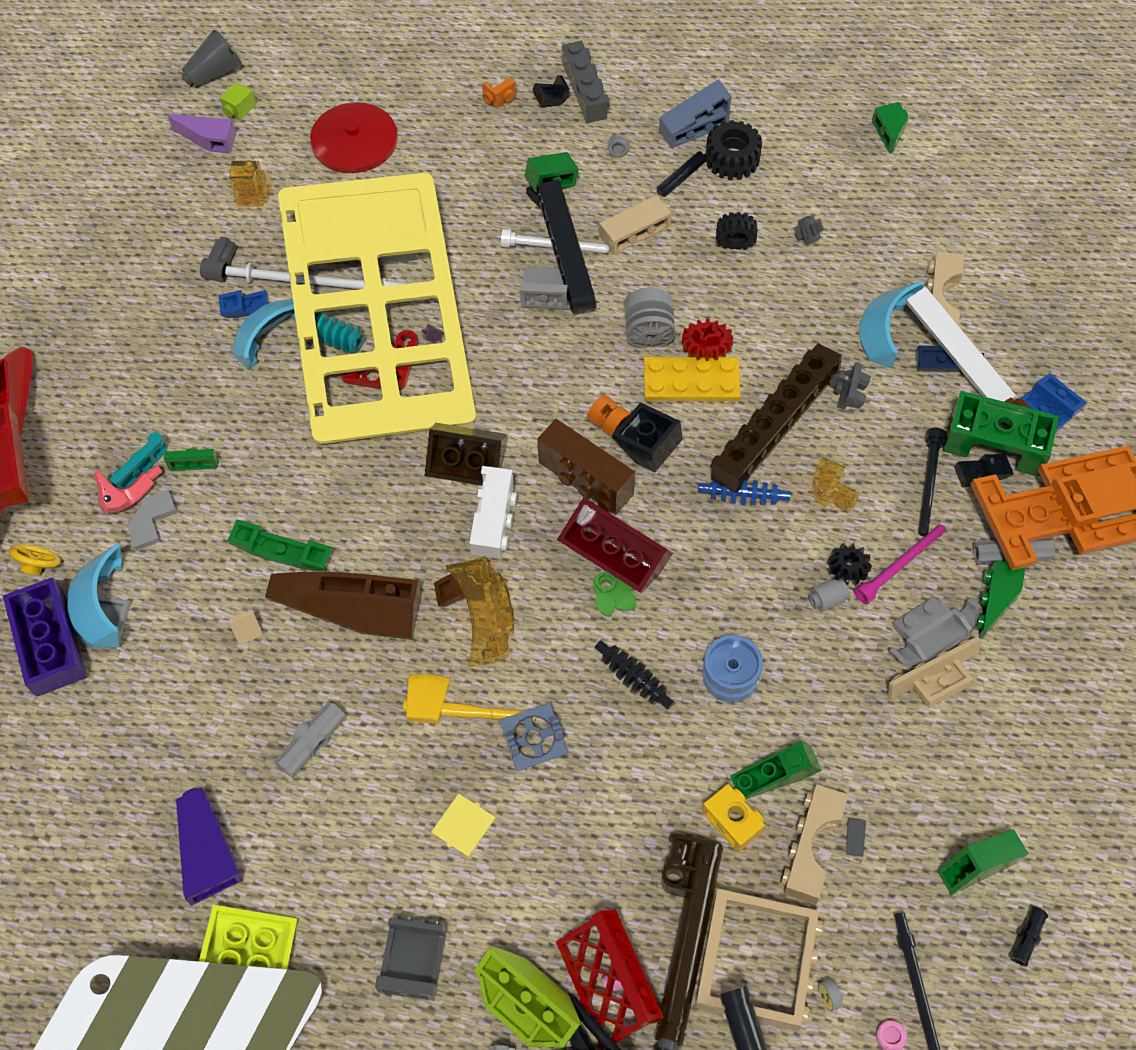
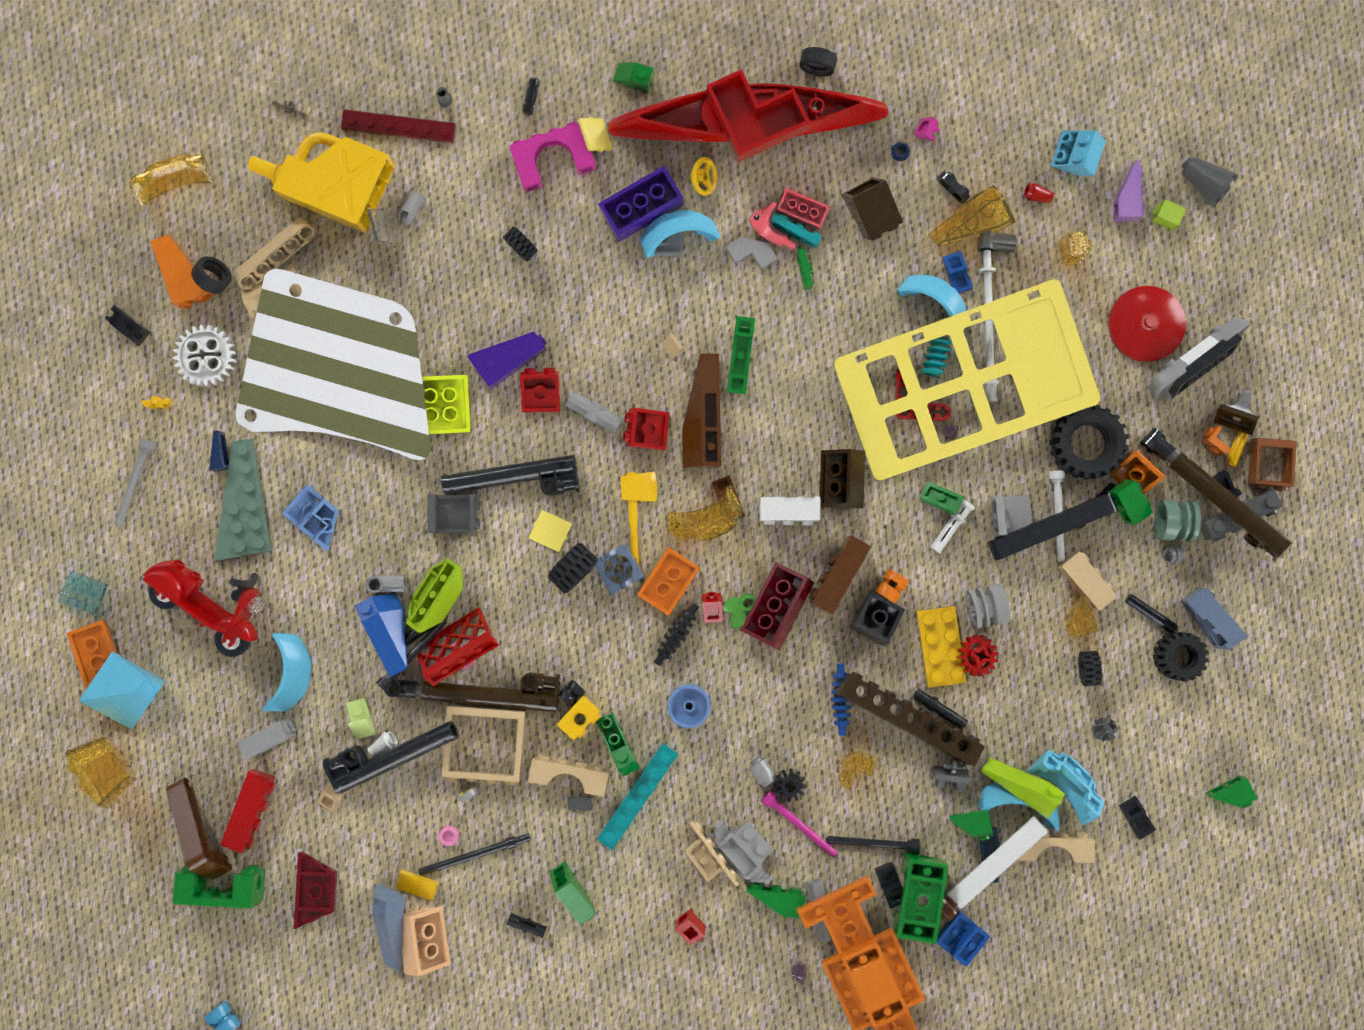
camera: 85 degrees right, 25 degrees up
(47, 801) = (520, 243): none -> black tyre
(61, 310) = (926, 128): none -> dark pink tile
(76, 337) = (903, 146): none -> dark blue plate
(114, 450) = (802, 209): none -> coral piece
(137, 375) = (873, 208): none -> dark brown slope
(140, 170) = (1079, 152): none -> medium azure slope
(140, 292) = (958, 191): none -> black plate
(175, 214) = (1038, 193): none -> red cone
(182, 271) = (980, 214): none -> clear yellow wedge
(262, 806) = (540, 390): none -> red plate
(348, 674) = (646, 429): none -> red plate
(380, 801) = (557, 470): none -> black piece
(406, 90) = (1199, 360): none -> piece
(473, 179) = (1113, 436): none -> black tyre
(475, 68) = (1238, 415): none -> dark brown piece
(501, 73) = (1236, 449): none -> yellow axle
(511, 351) = (941, 498): none -> green plate
(512, 160) = (1139, 469): none -> orange slope
(521, 789) = (572, 568): none -> black tyre
(536, 36) = (1288, 465): none -> dark orange window
(538, 341) = (959, 518): none -> white pin
(560, 676) = (668, 581): none -> orange plate
(580, 130) = (1177, 520): none -> sand green wheel
(604, 625) = (712, 607): none -> bracket
(606, 55) = (1259, 532): none -> dark brown piece
(676, 235) = (1080, 618): none -> clear yellow slope
(697, 822) = (572, 693): none -> black wheel
(769, 386) = (945, 712): none -> black pin
(852, 758) = (637, 796): none -> teal plate
(871, 268) = (1071, 780): none -> medium azure windscreen
(874, 300) = (1030, 789): none -> lime wedge
(910, 217) = (1136, 817): none -> black slope
(912, 366) = (975, 824): none -> green slope
(1034, 710) = (690, 927): none -> red brick
(1094, 587) = (799, 971): none -> clear purple plate

